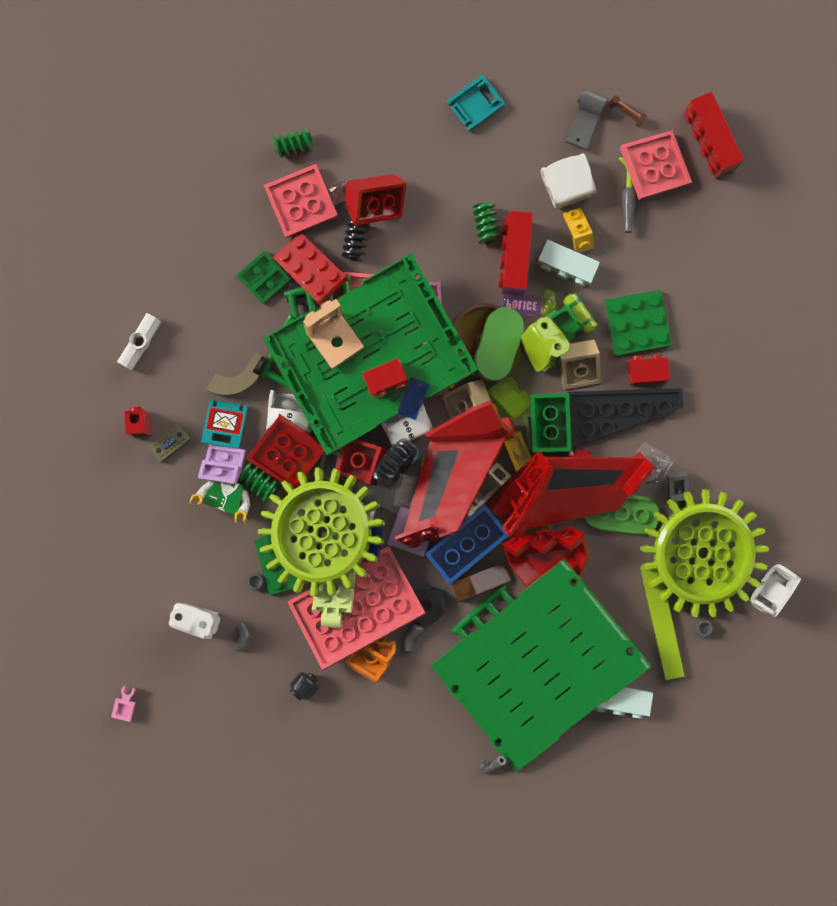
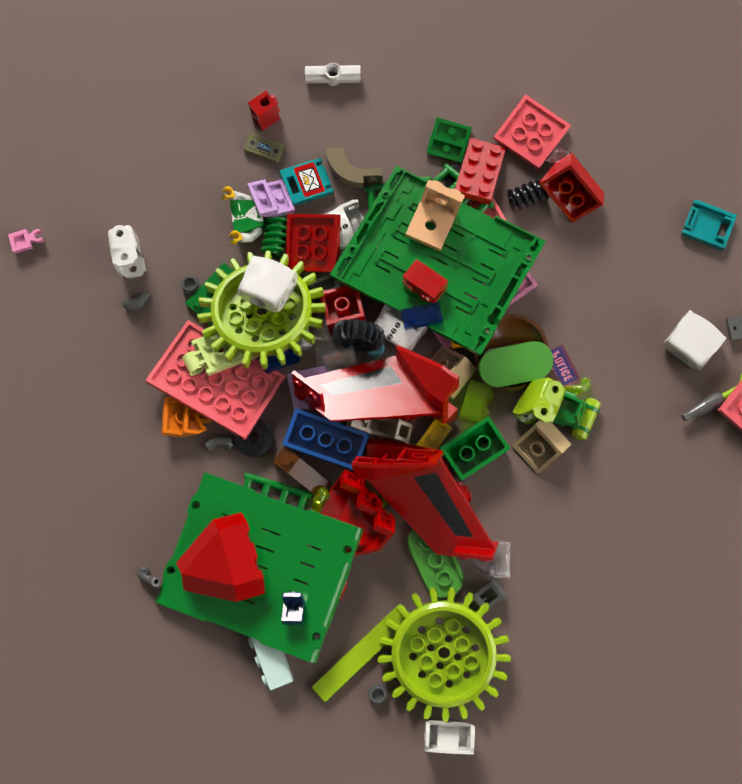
camera: 60 degrees right, 5 degrees down
(293, 143) = (575, 97): green piece -> none
(304, 686) = (124, 375): black head -> none
(305, 514) = (267, 283): none -> white piece
(486, 223) = (612, 292): green piece -> none
(514, 580) = (320, 499): none -> clear neon green arm
(516, 256) = (604, 331): red brick -> none
(521, 693) = (223, 561): none -> red panel
(567, 263) = (622, 382): light aqua brick -> none
(580, 230) = (657, 376): yellow bracket -> none
(596, 656) = (293, 608): none -> bracket
(609, 411) = (515, 494): black wing -> none
(637, 323) = (610, 474): green plate -> none
(648, 370) = (574, 508): red brick -> none

